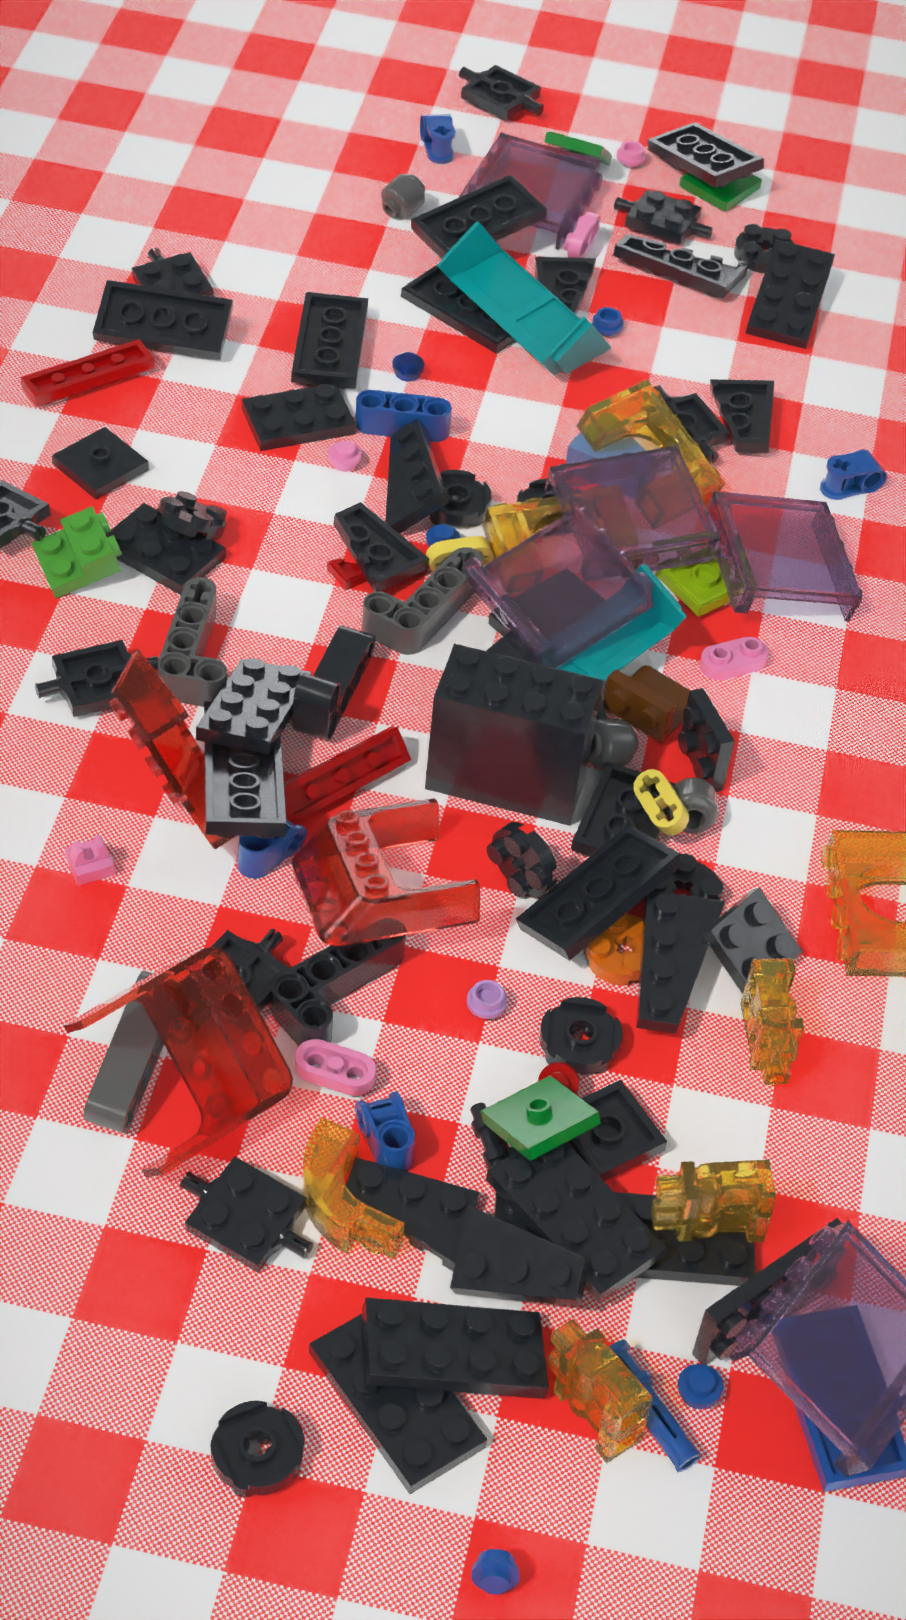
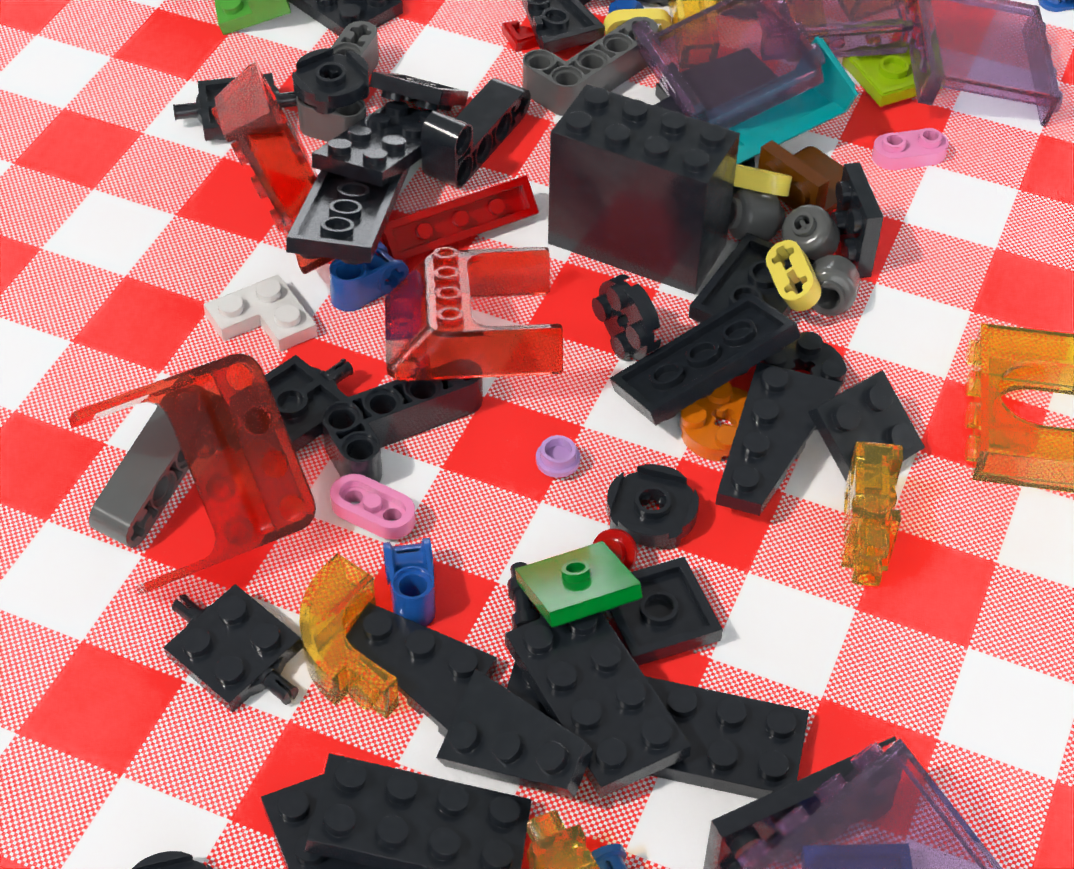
camera: 15 degrees right, 0 degrees up
(89, 860) = (178, 274): bright pink tile -> none
(181, 881) = (265, 305): none -> white plate
(190, 661) = (346, 84): none -> black plate
(281, 647) = (423, 92): none -> black plate
(619, 711) = (762, 180): none -> light yellow beam
(667, 754) = (812, 230): none -> dark grey head
(716, 1199) = (756, 697): clear yellow hips -> none

